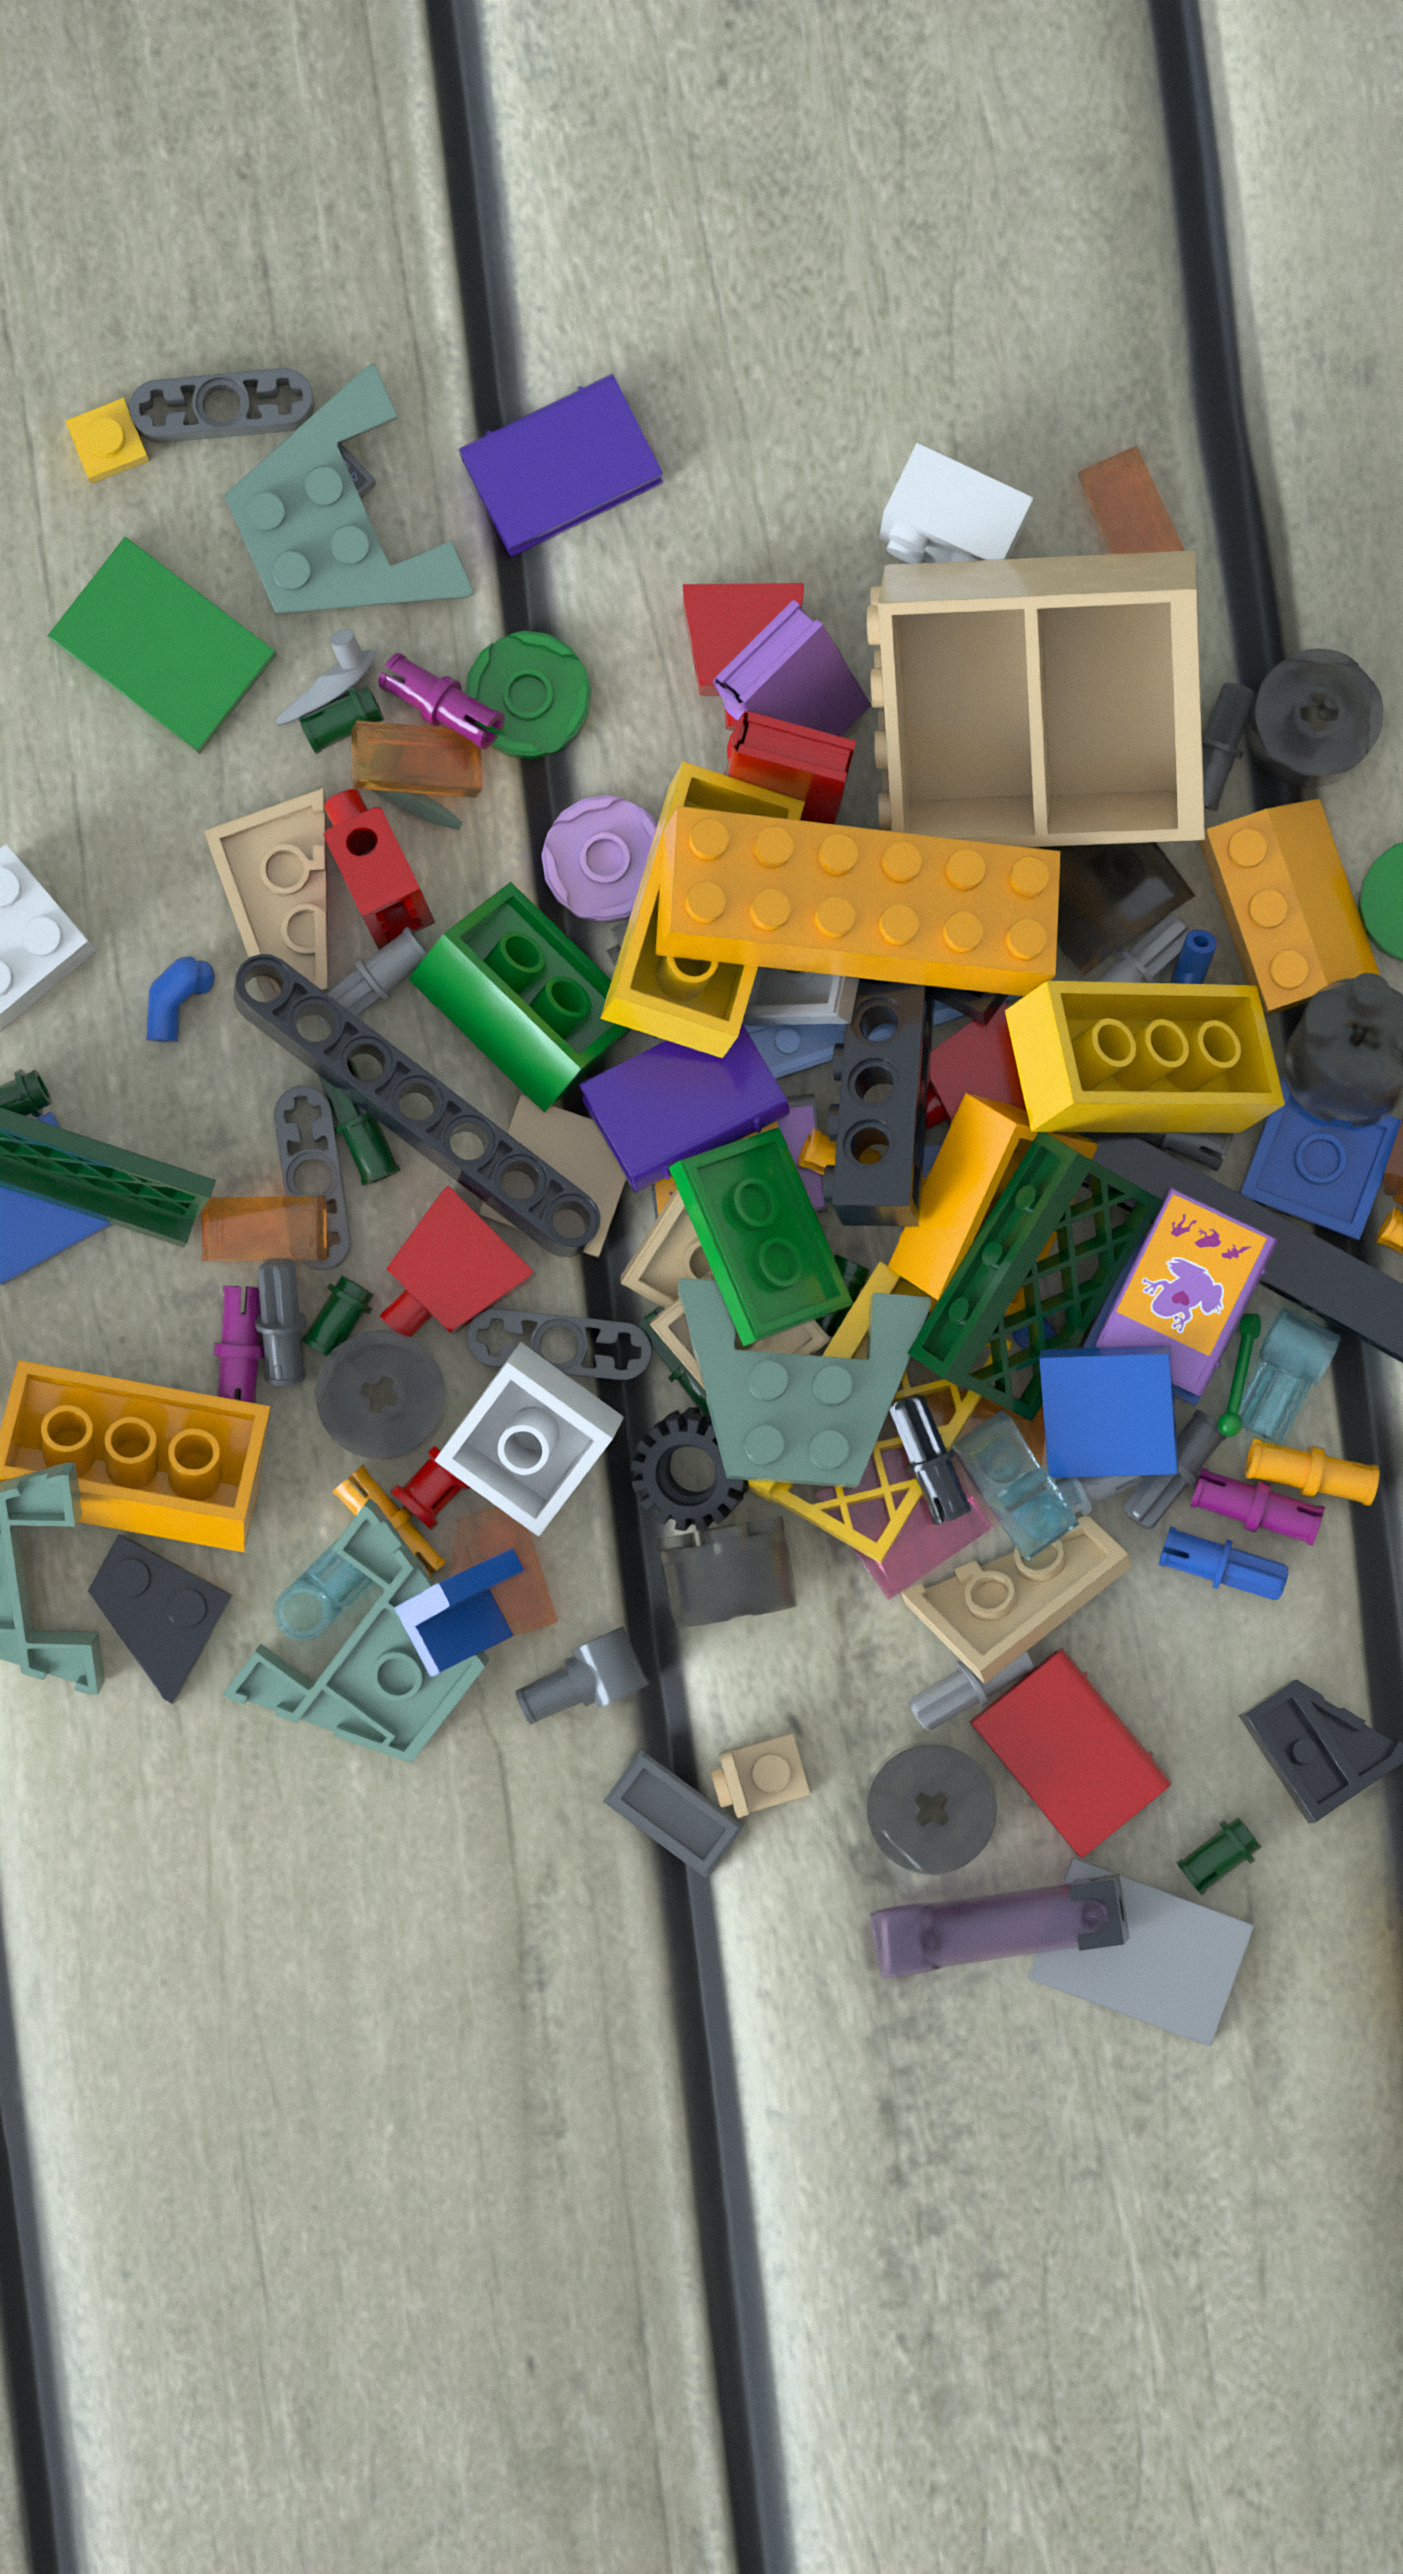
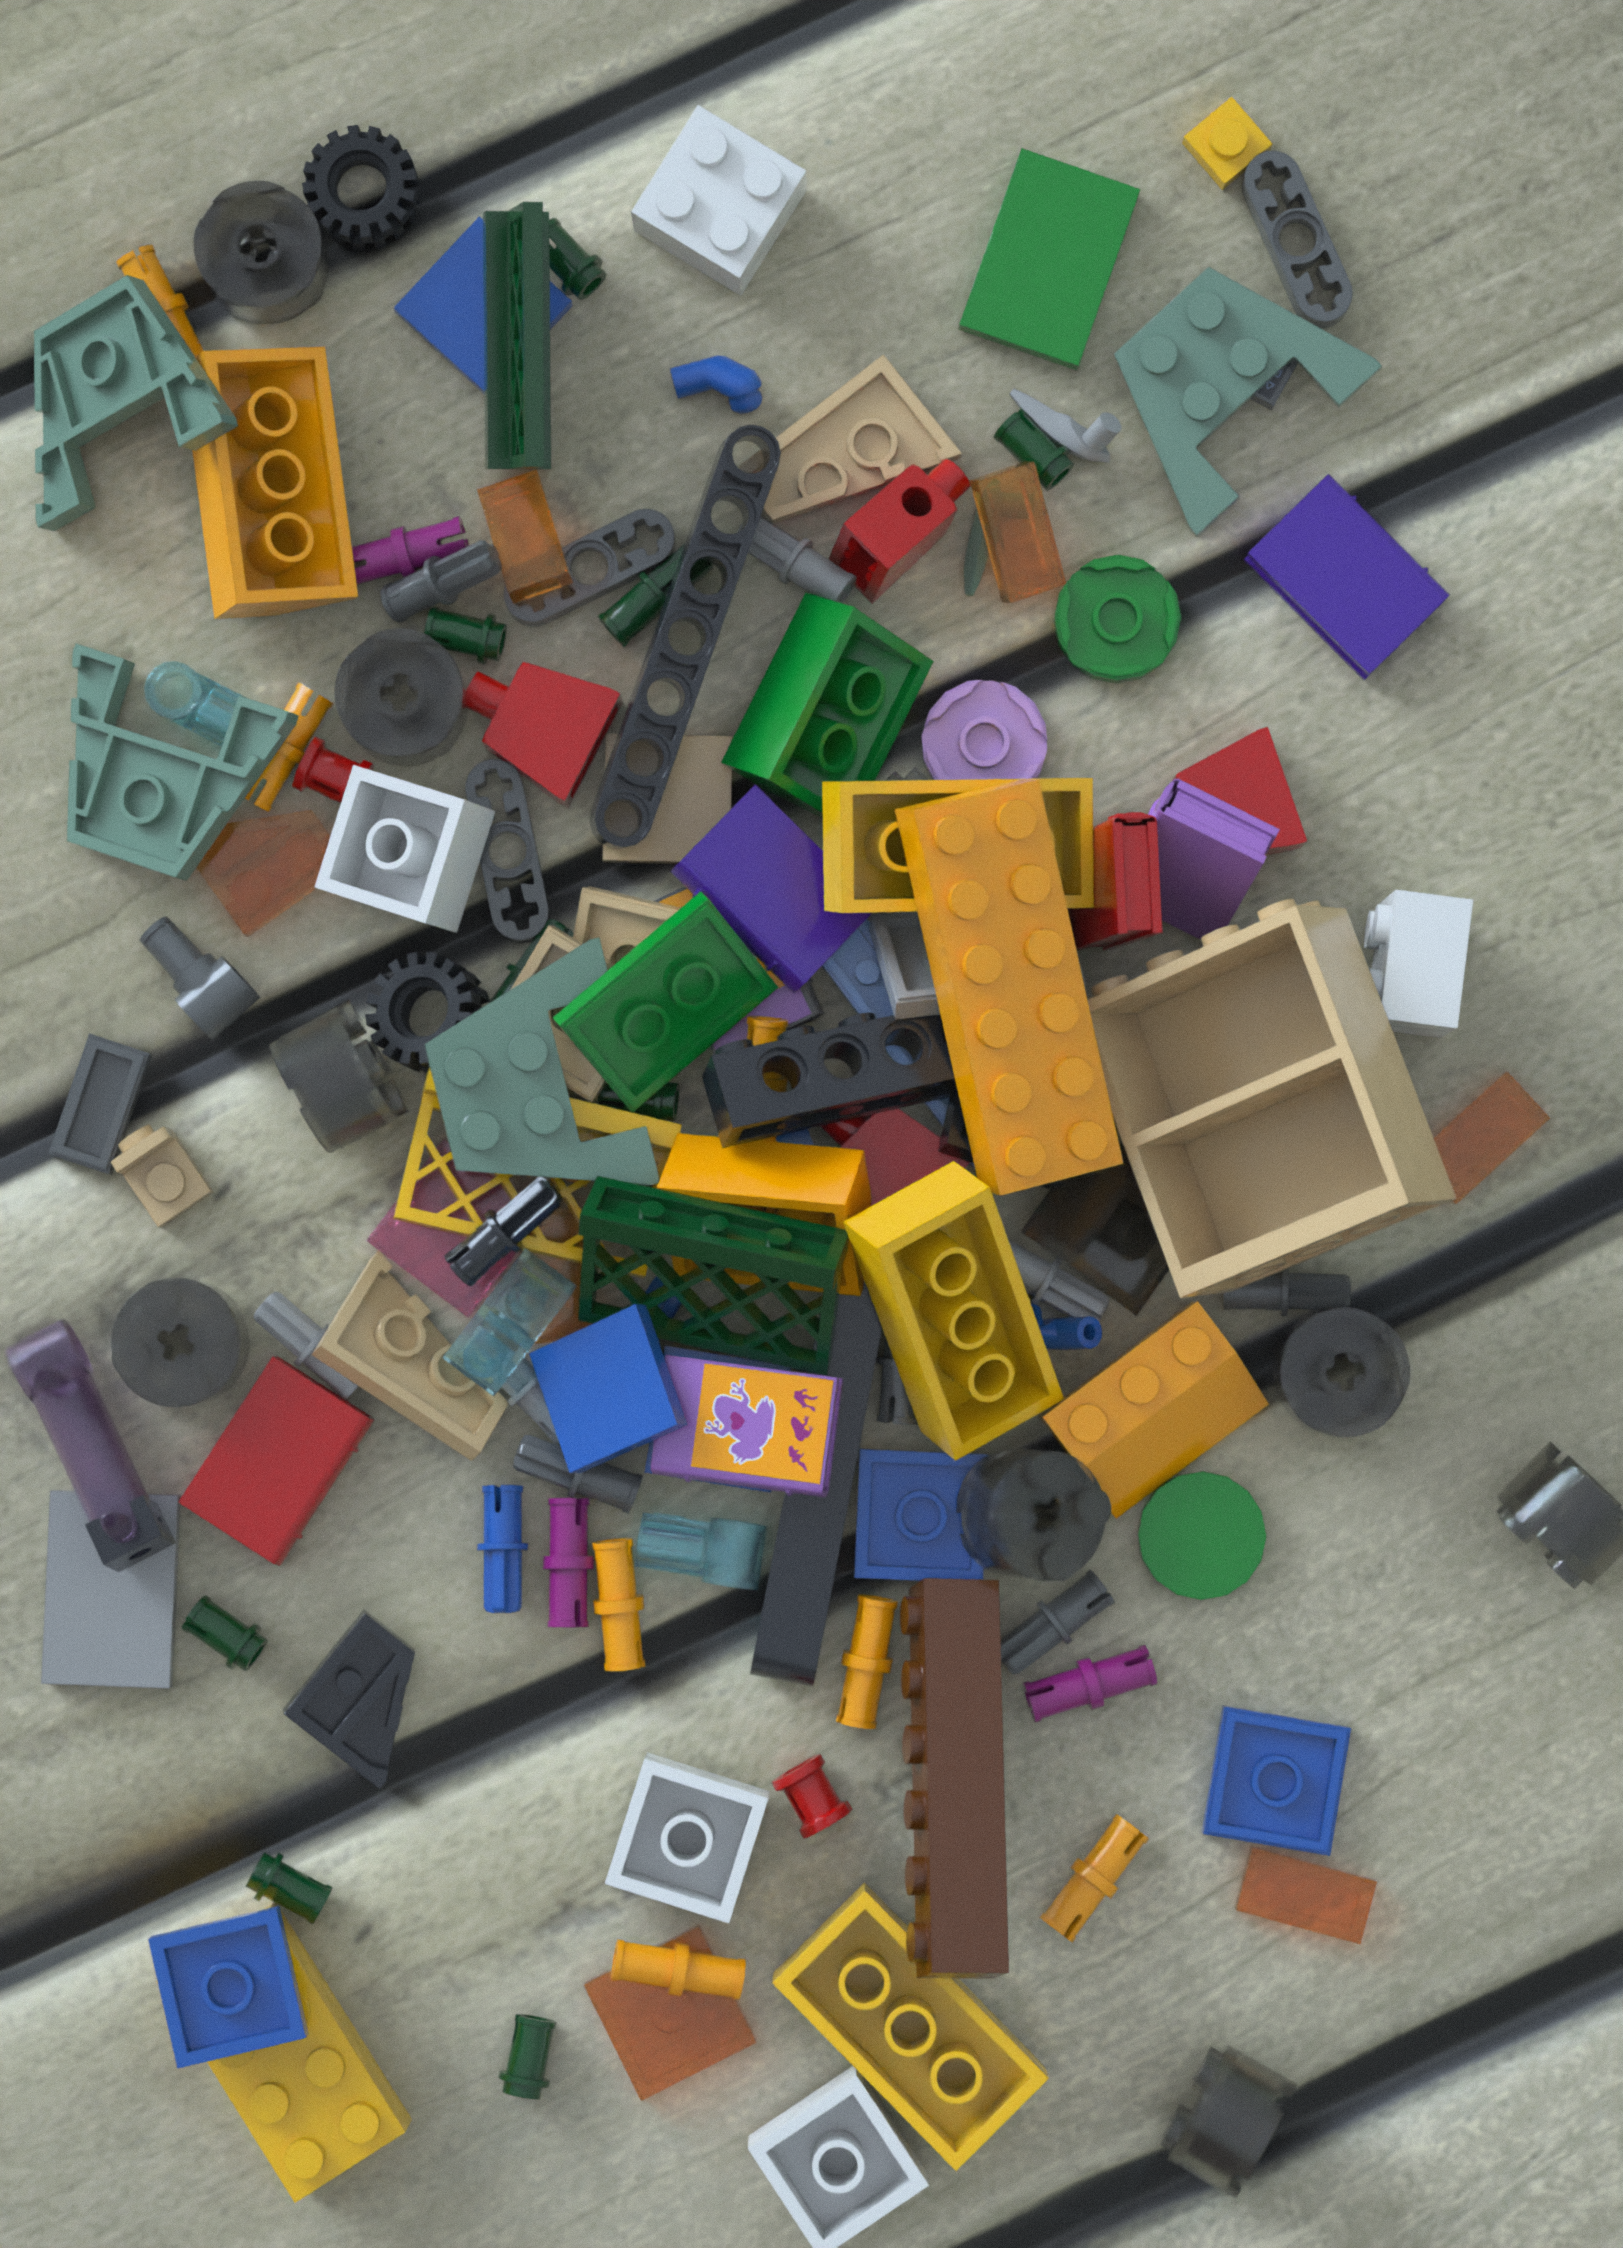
camera: 75 degrees right, 0 degrees up
(158, 1611) = (134, 558): black wing -> none
(441, 701) = (1081, 537): magenta pin -> none
(459, 1614) = (214, 835): blue panel -> none
(1230, 1423) = (738, 1501): green hinge -> none

